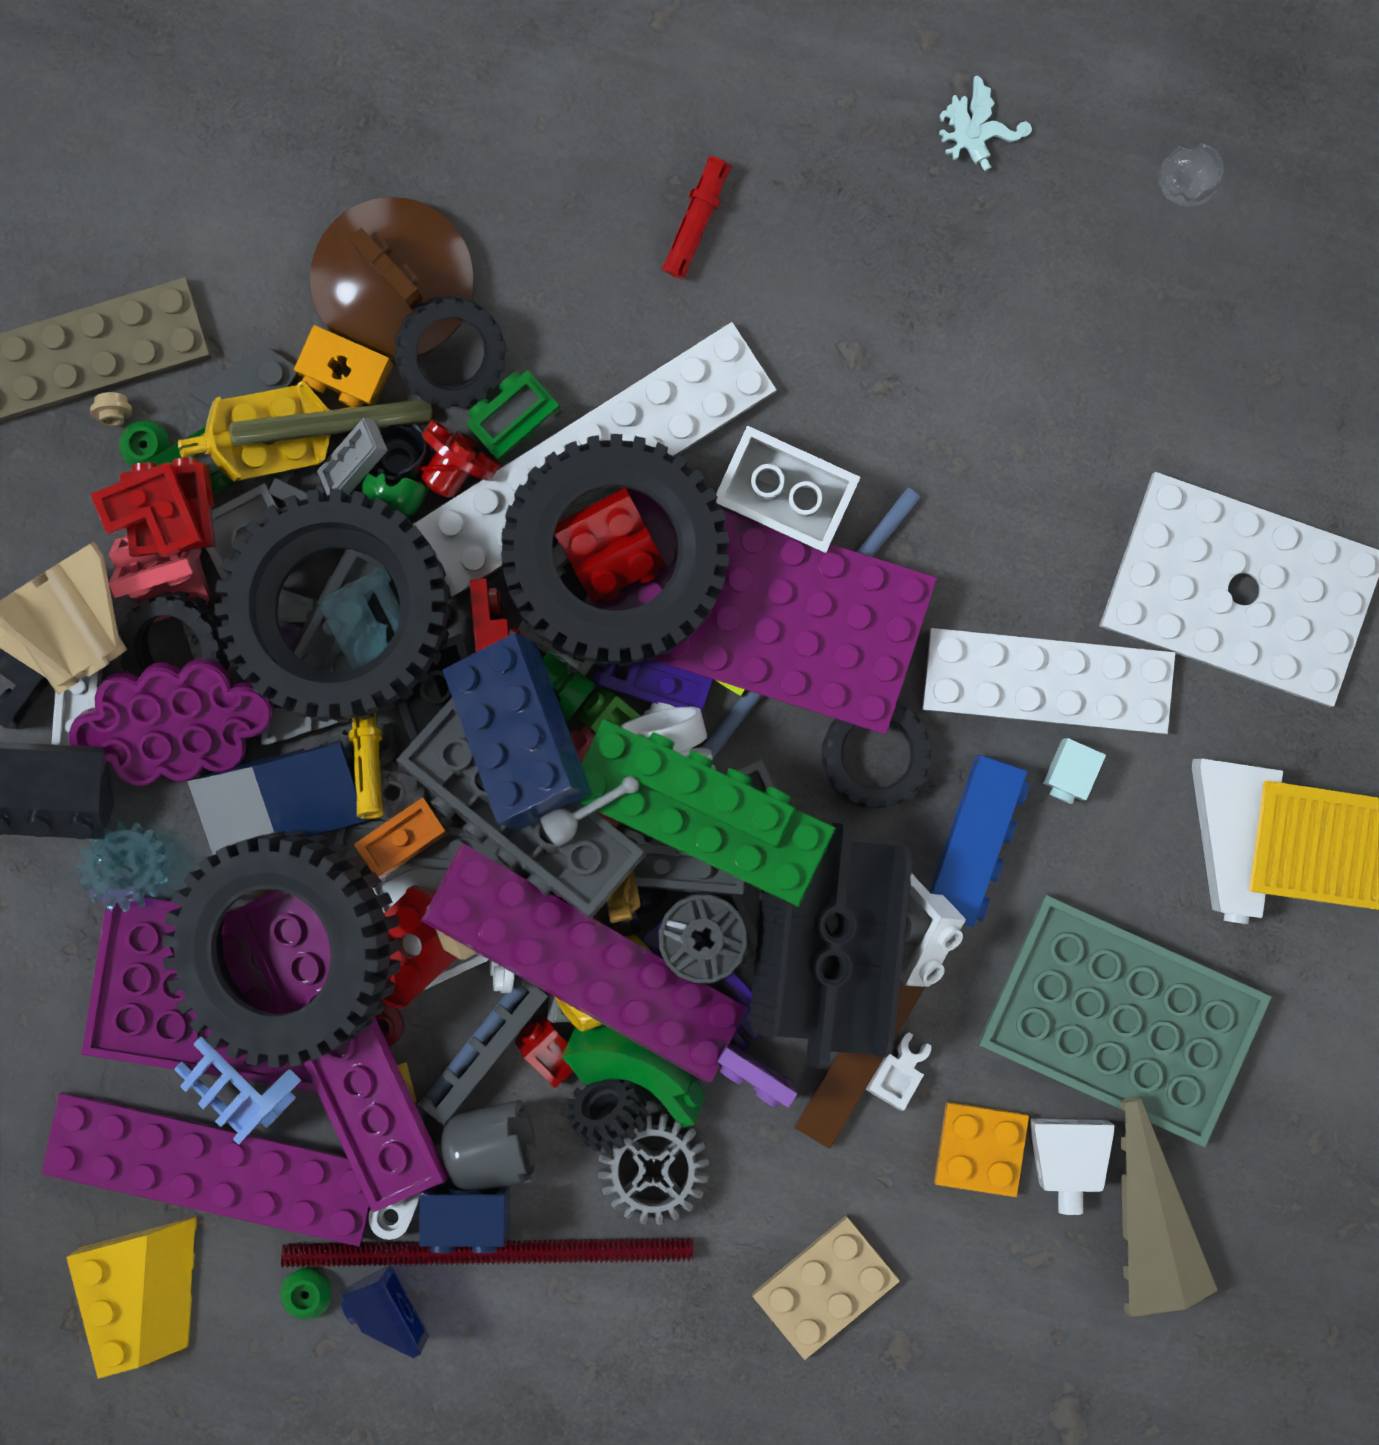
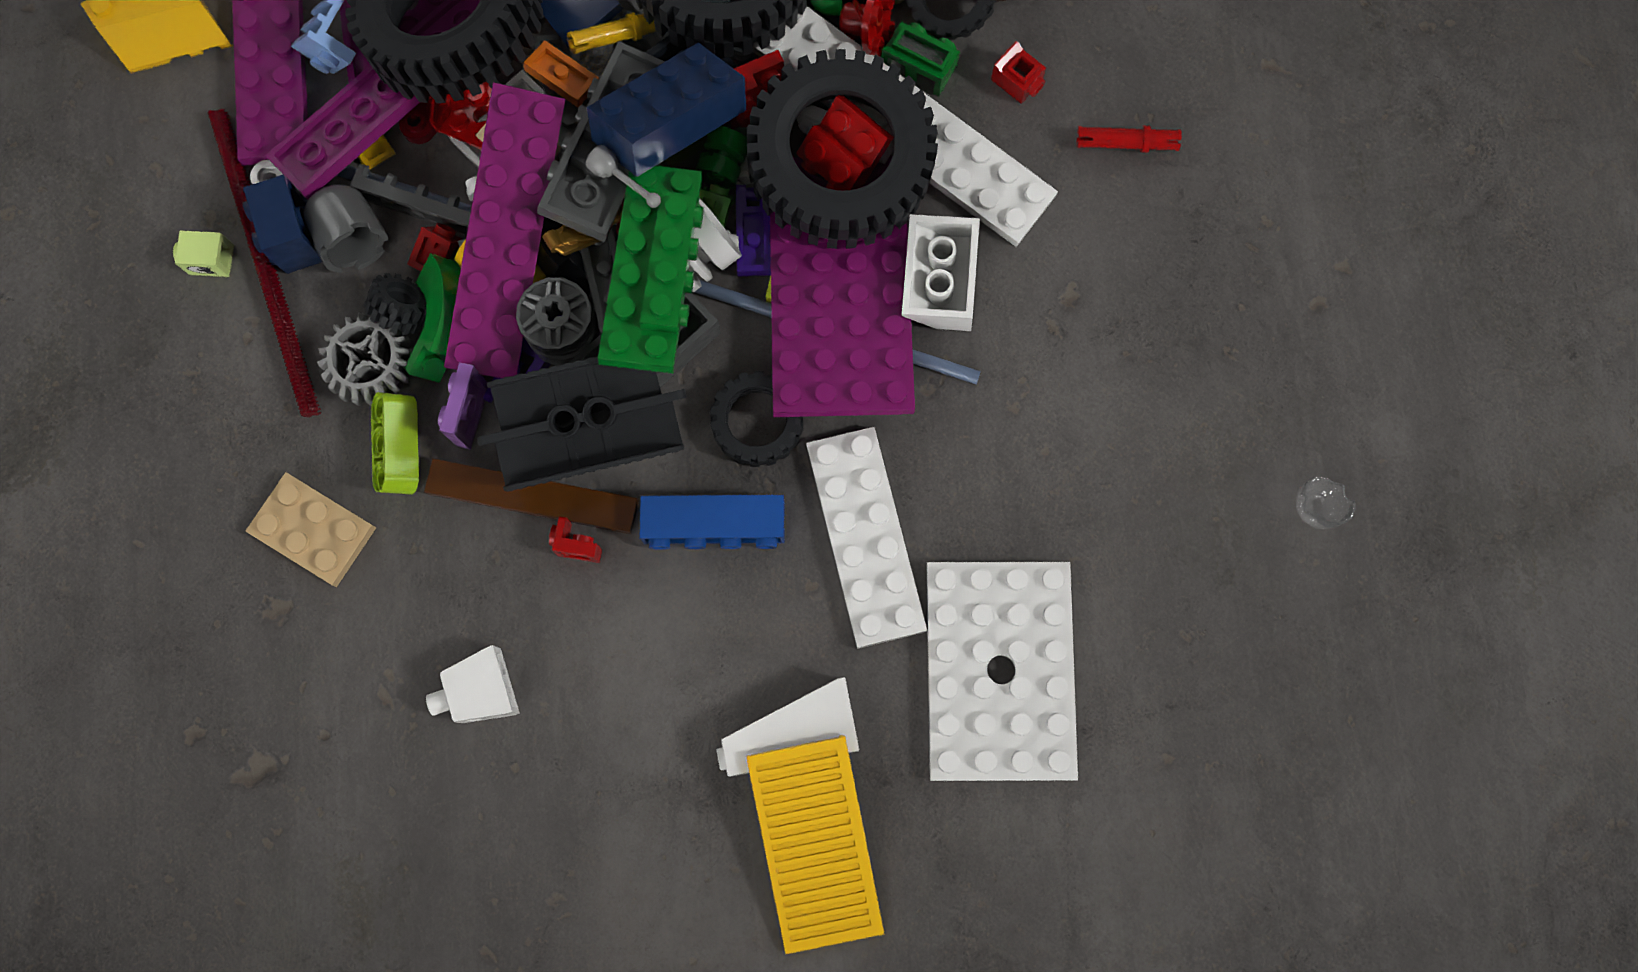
camera: 75 degrees right, 10 degrees down
(312, 1282) = (199, 146): green plate -> none
(385, 1312) = (192, 197): clear blue slope -> none
(458, 1319) = (203, 253): none -> yellowish green brick
(570, 329) = (1011, 81): none -> red window
(766, 1164) = (394, 443): none -> lime beam
(896, 1077) = (498, 525): white plate -> none
(929, 935) = (620, 491): white plate -> none
(954, 998) = (579, 547): none -> red bracket
(973, 131) = (1285, 325): light aqua piece -> none
(981, 1149) = (462, 615): light orange plate -> none
(1073, 771) = (797, 579): light aqua brick -> none
(1124, 1019) = (605, 696): sand green plate -> none
(1164, 1256) = (416, 794): dark tan wedge -> none

